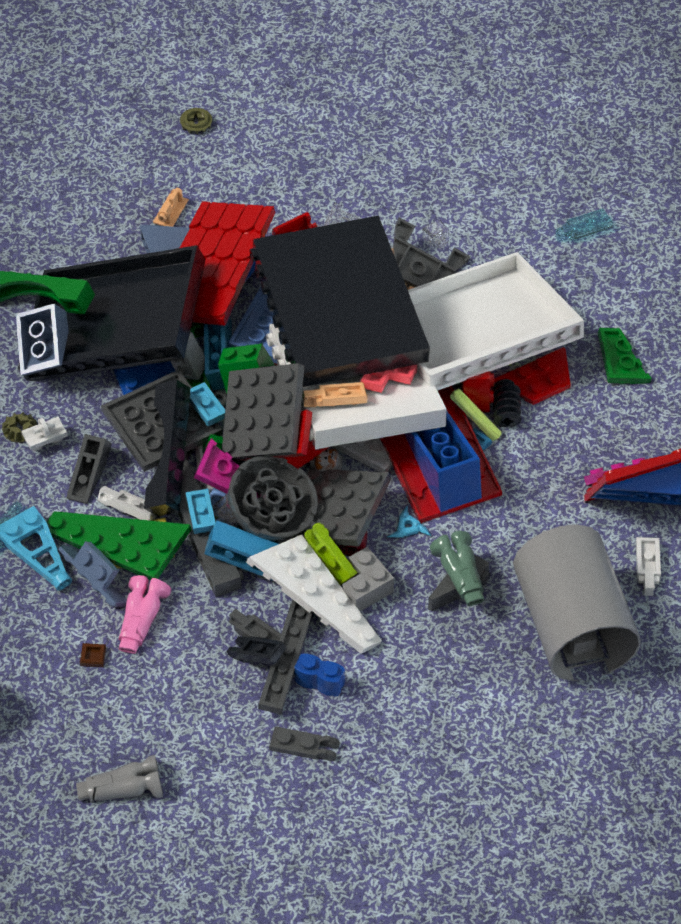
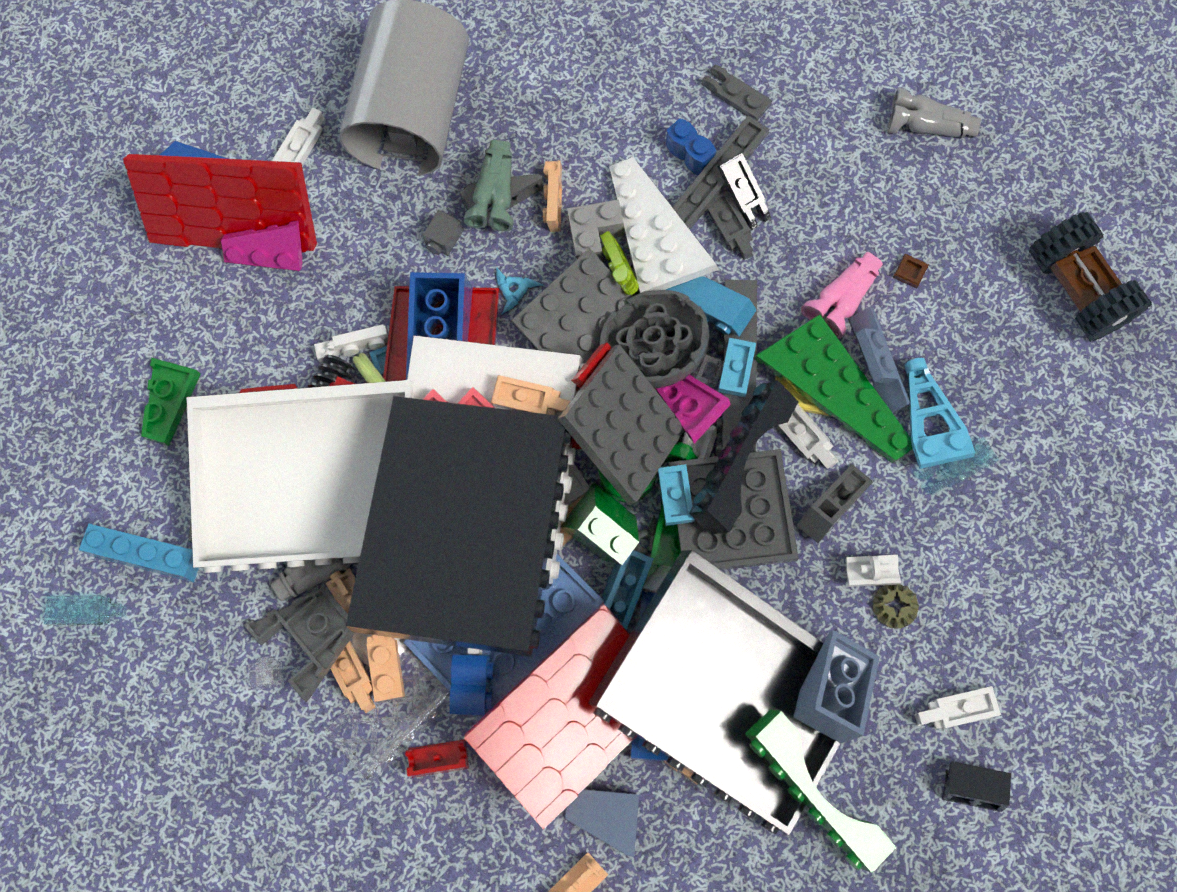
camera: 150 degrees left, 20 degrees up
(414, 599) = (553, 195): none -> light nougat hinge
(486, 537) = (442, 233): none -> dark grey brick
(507, 439) = (352, 342): none -> white hinge
(571, 263) = (139, 552): none -> dark azure brick

